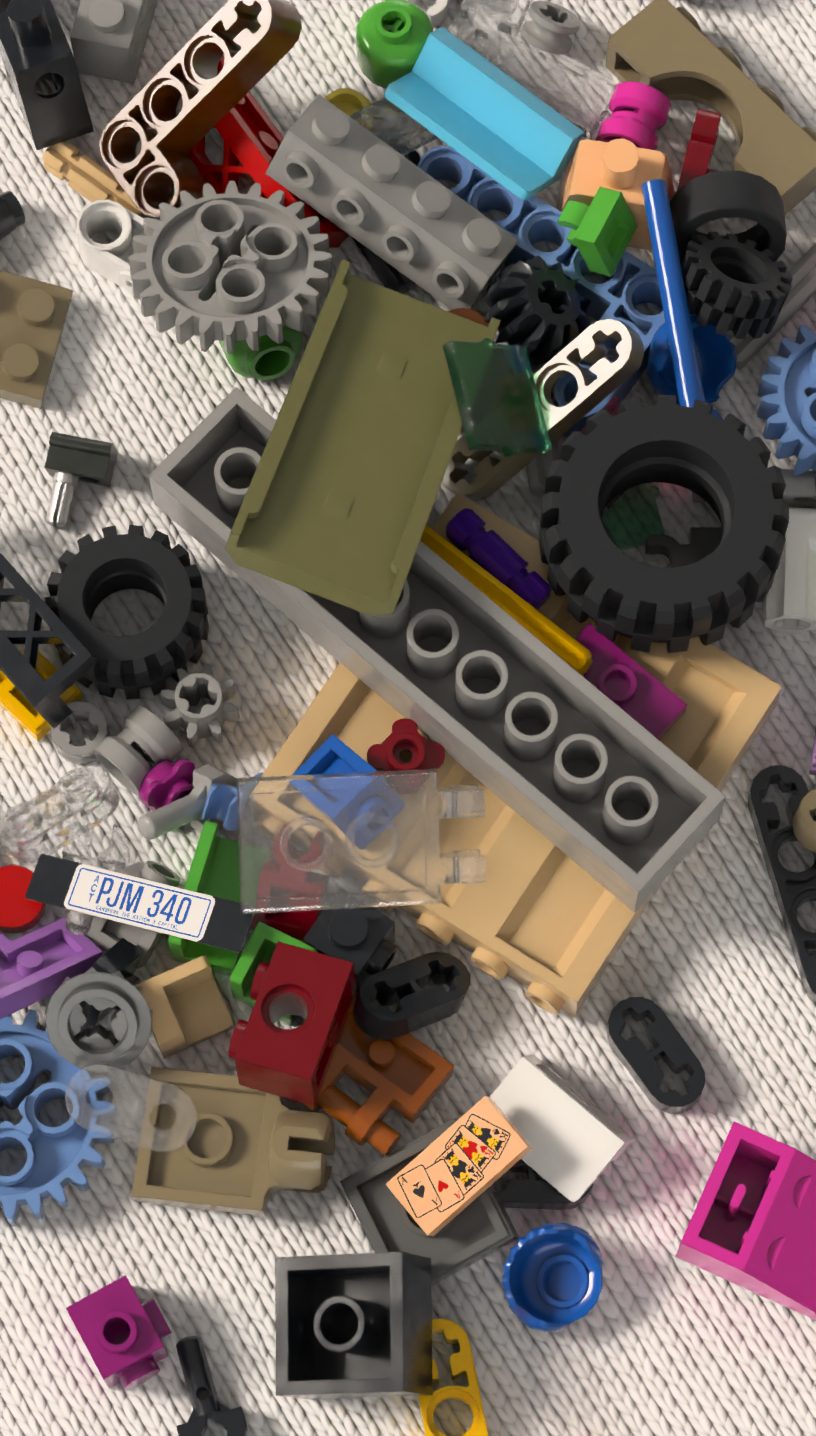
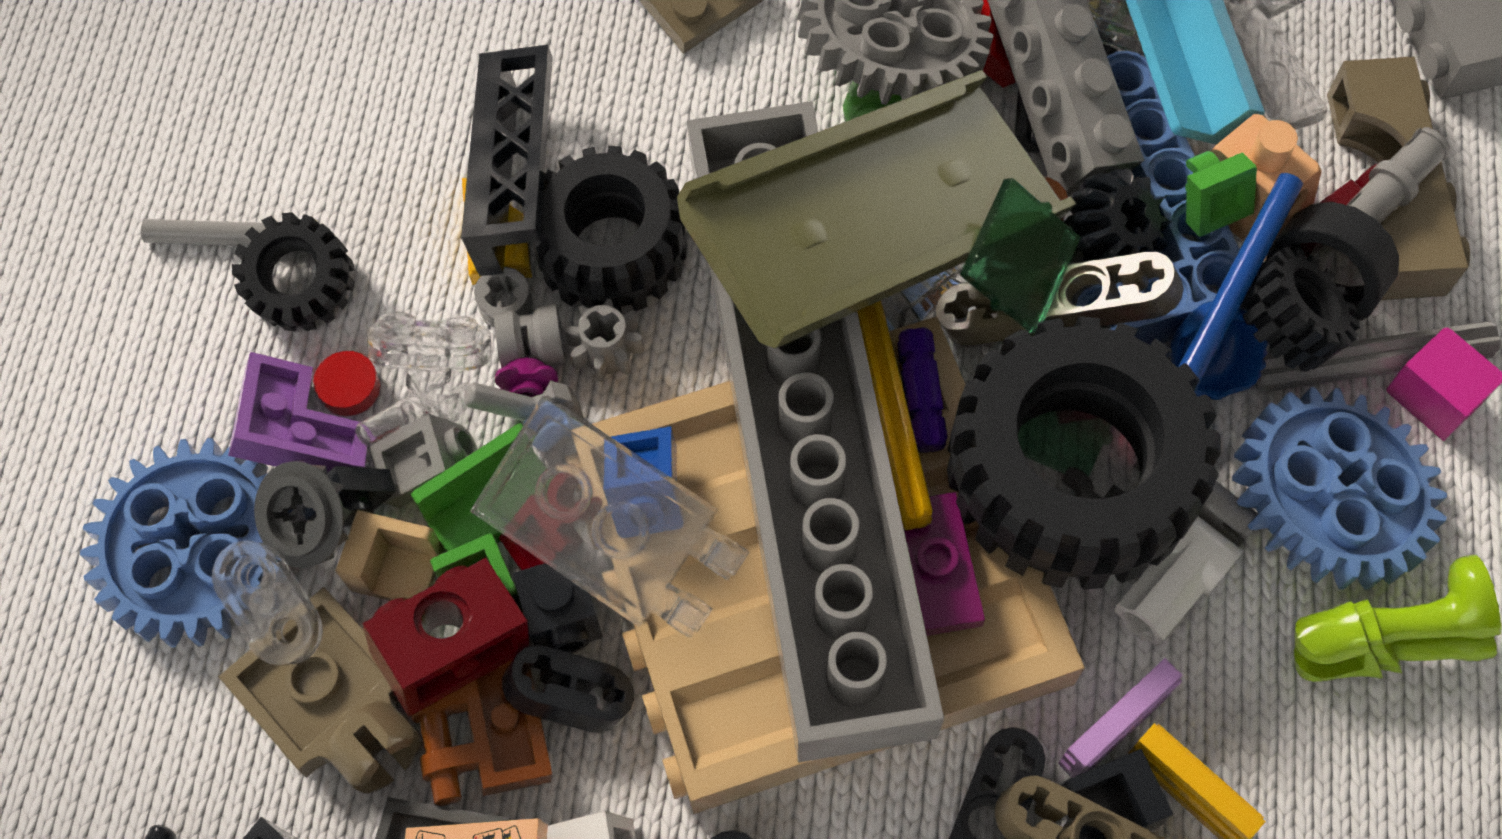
camera: 40 degrees right, 5 degrees down
(71, 461) = (667, 99): pearl dark grey piece -> none
(121, 1333) = (112, 780): magenta brick -> none
(139, 902) = (417, 450): sticker -> none
(405, 738) = (728, 473): dark red plate -> none
(550, 27) = (1302, 31): light grey bush -> none
(635, 115) = (1327, 135): dark pink wheel -> none
(727, 119) = (1397, 180): none -> light grey pin

